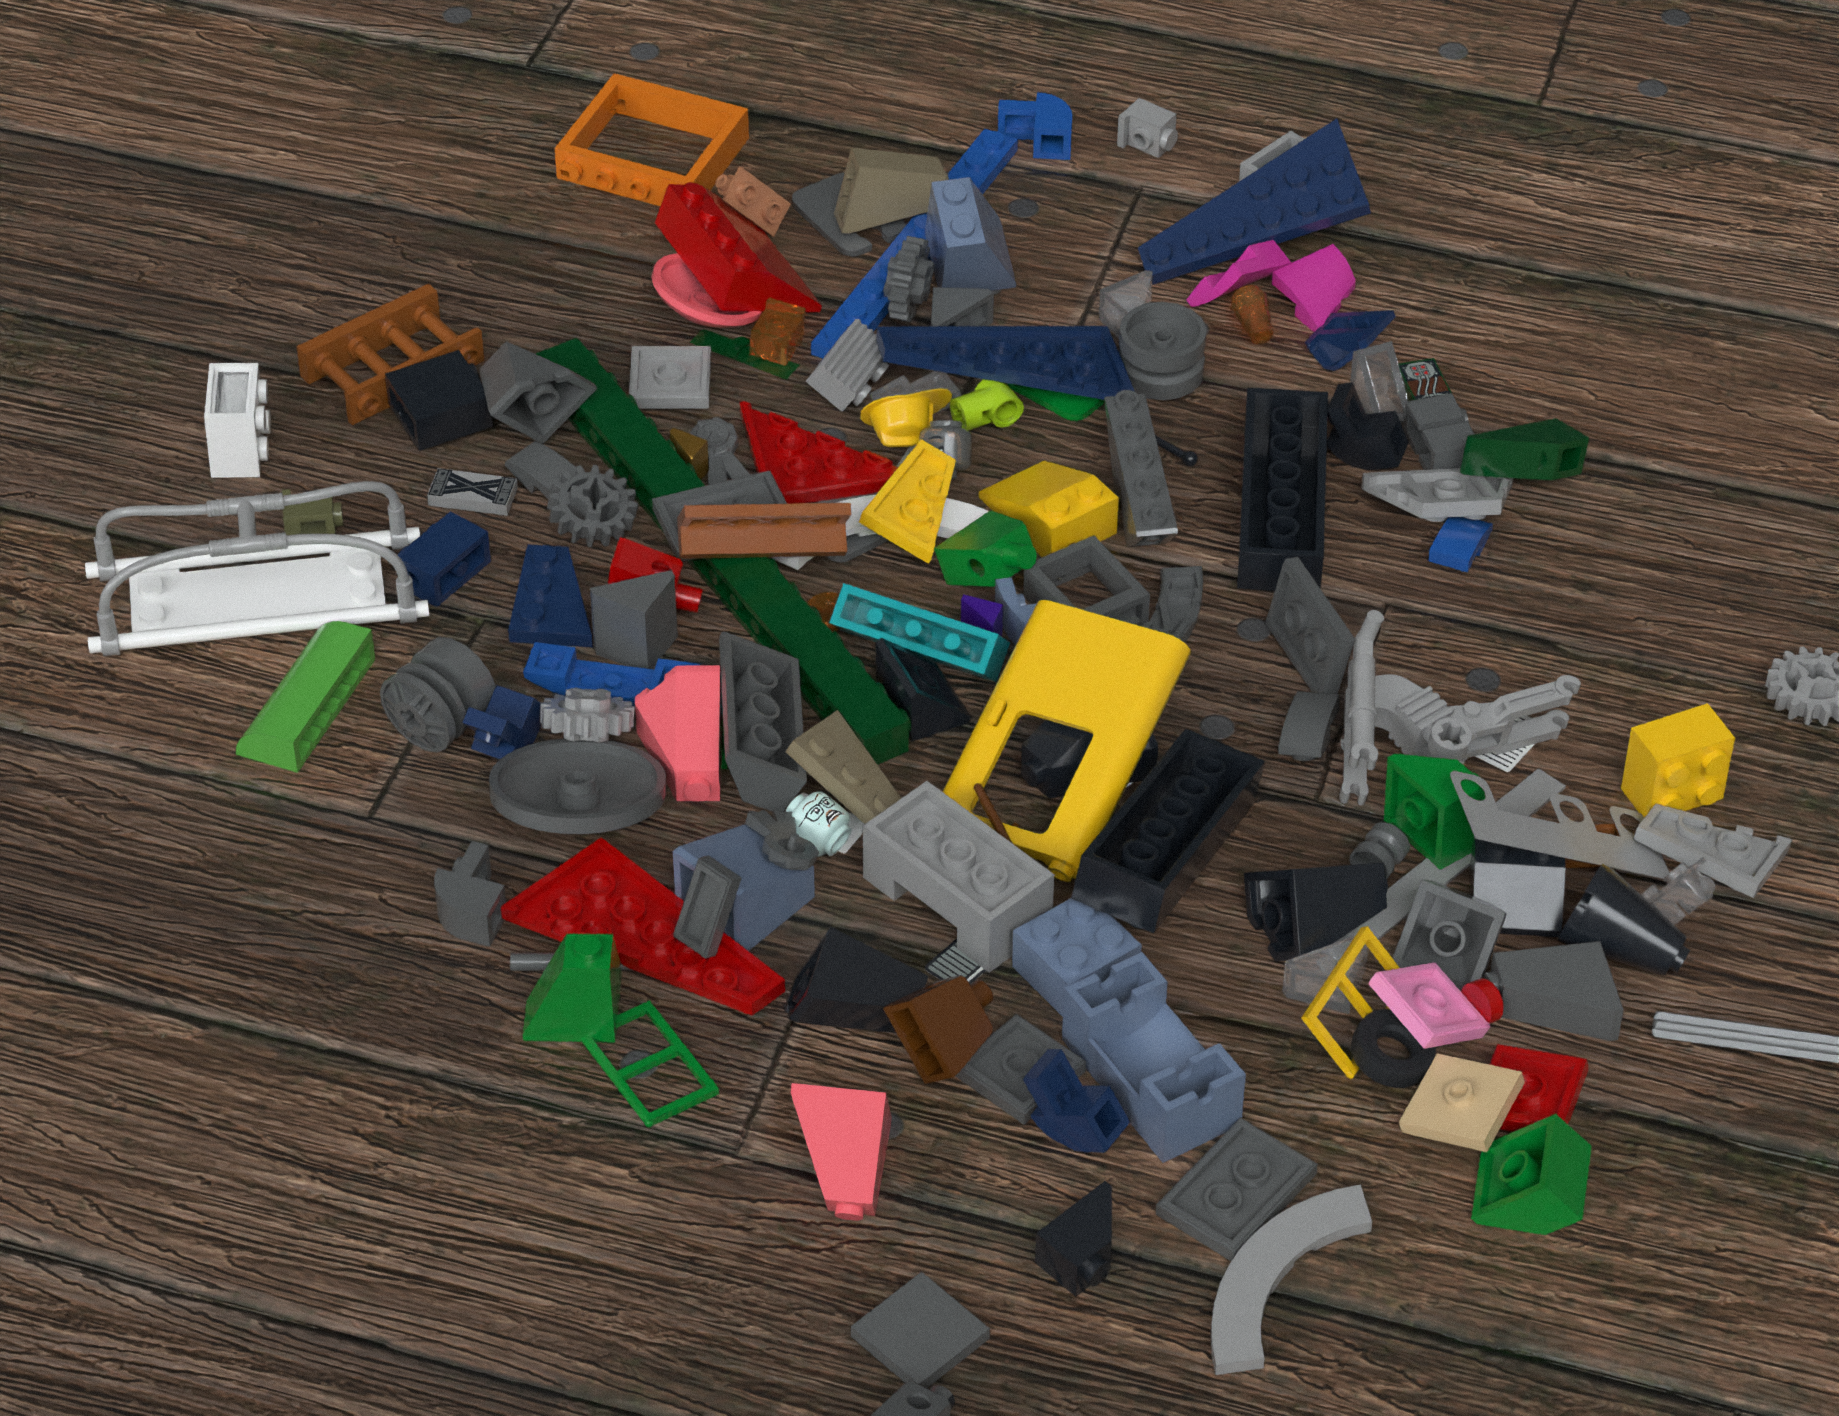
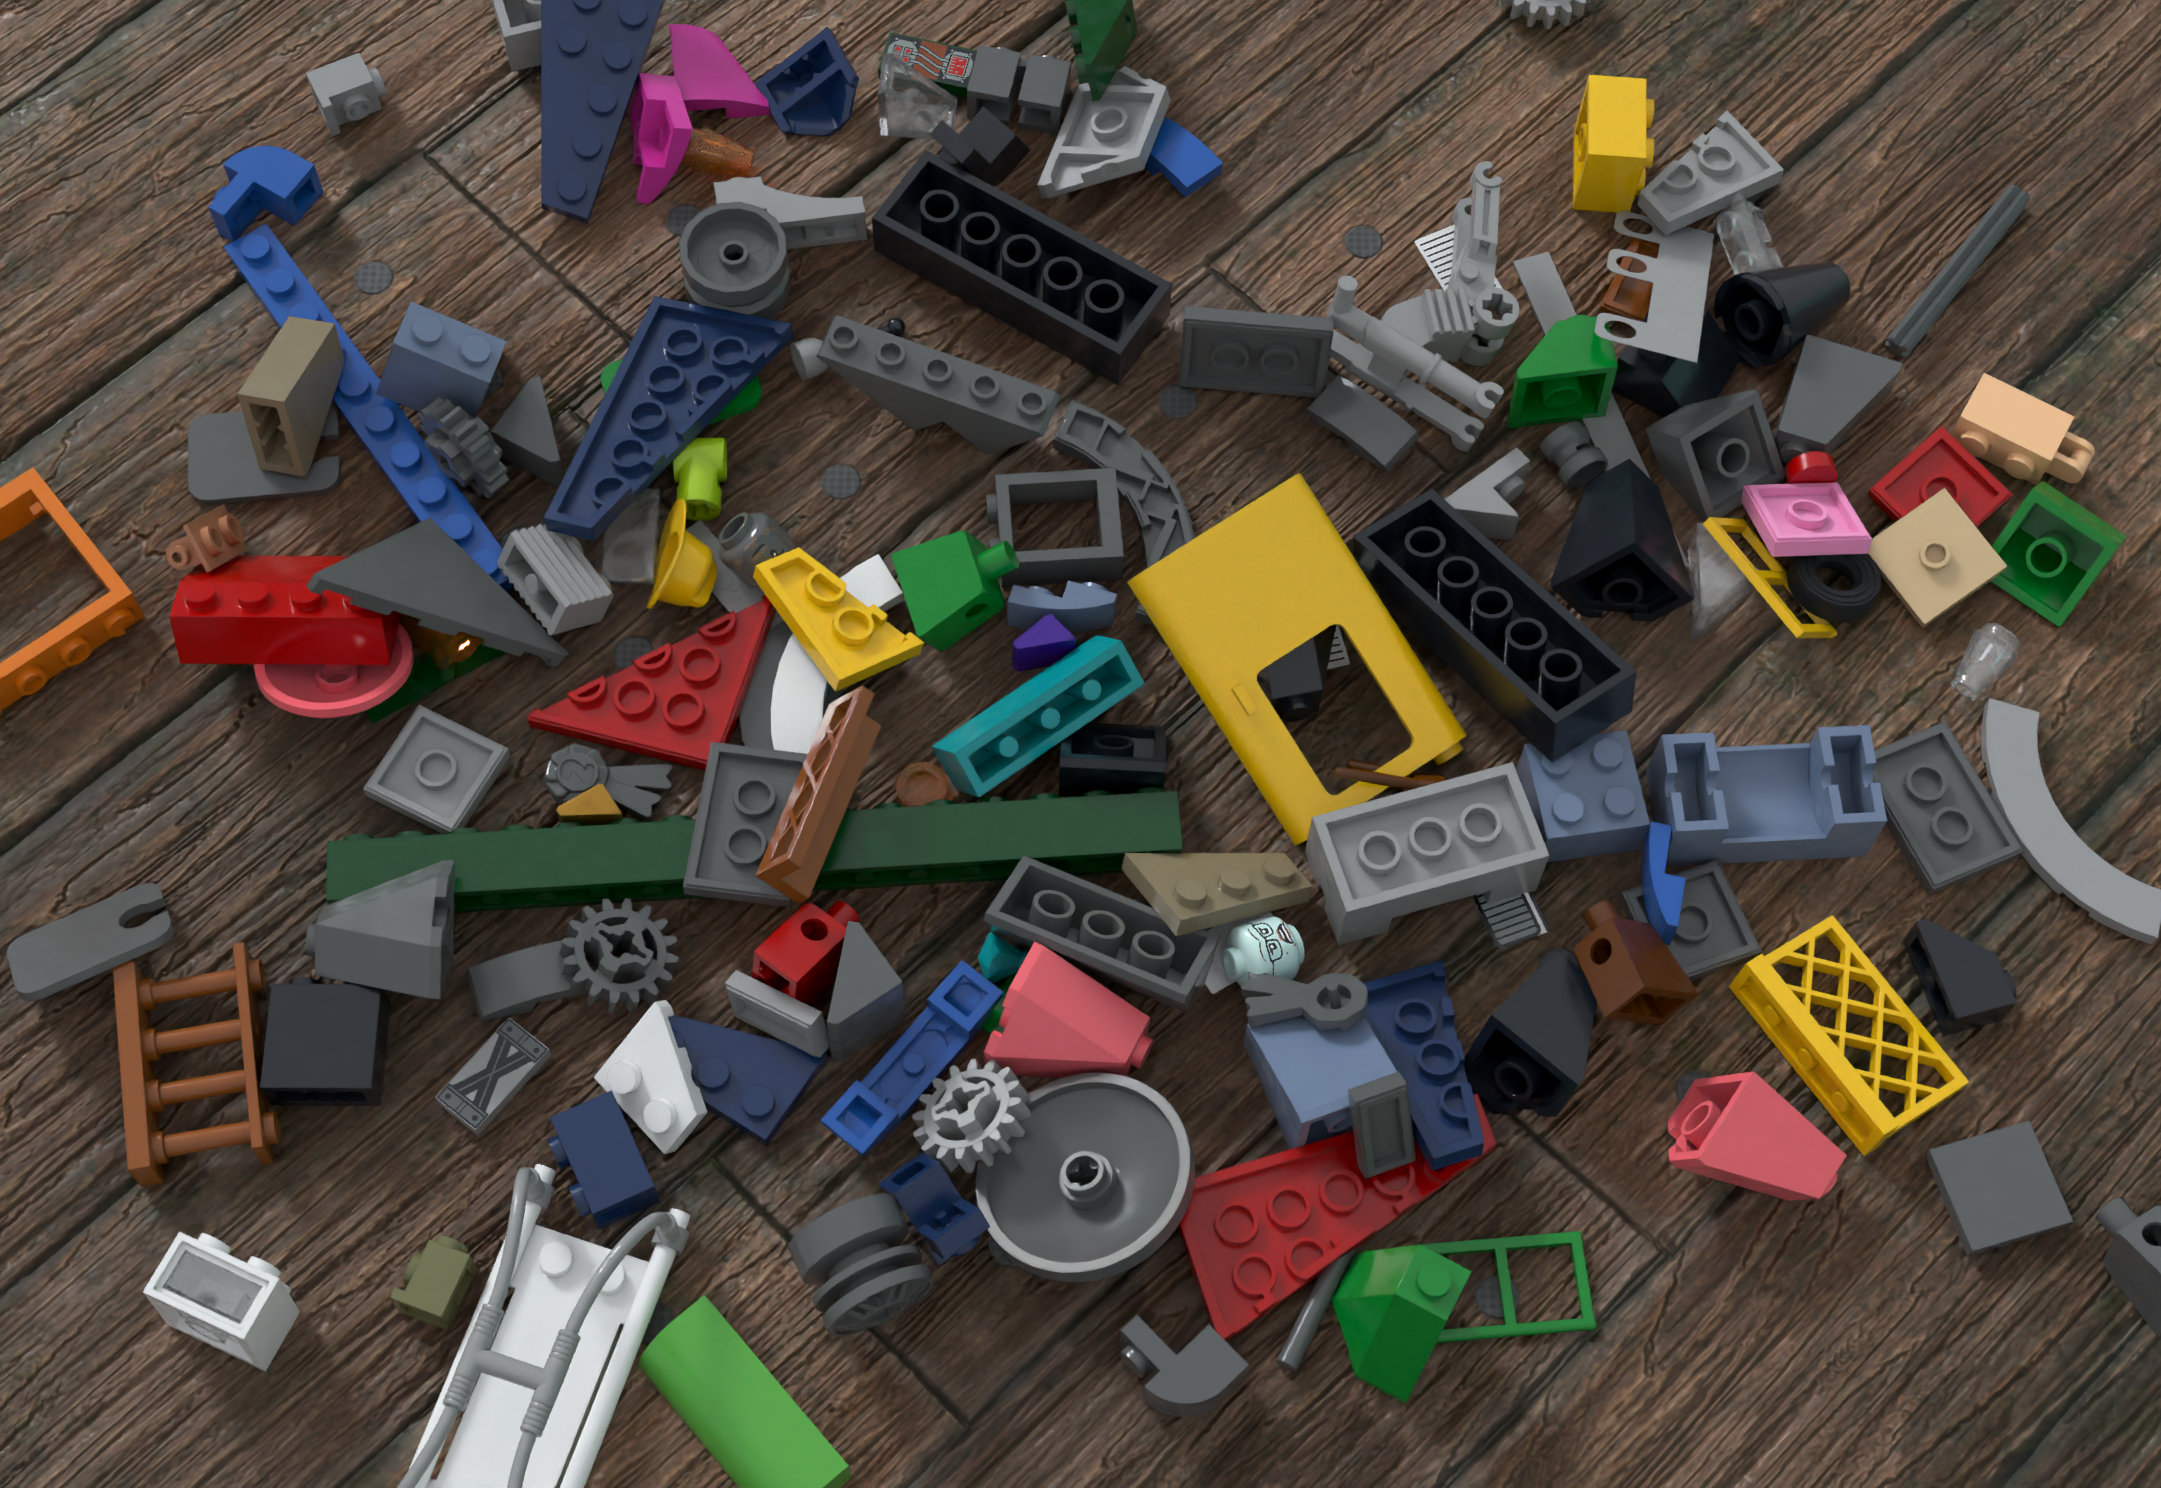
camera: 65 degrees left, 20 degrees up
(442, 275) = (88, 942): none -> dark grey piece
(512, 556) = (655, 1080): none -> white wing
(599, 577) = (777, 1014): none -> light grey tile
(785, 933) = (1419, 1036): none -> dark blue wing
(787, 296) = (440, 584): none -> dark grey tile
(954, 1176) = (1818, 1051): none -> yellow fence
(1015, 1021) = (1660, 891): none -> blue slope
(1055, 505) = (894, 491): yellow slope -> none
(1071, 1112) = (1792, 900): dark blue brick -> none
(1123, 296) = (636, 263): clear slope -> none
(1225, 363) = (803, 218): none -> light grey slope
(1294, 811) = (1487, 496): none -> light grey slope
(1393, 1170) = (1985, 660): none -> clear cone
(1629, 1119) = (2021, 434): none -> light nougat brick

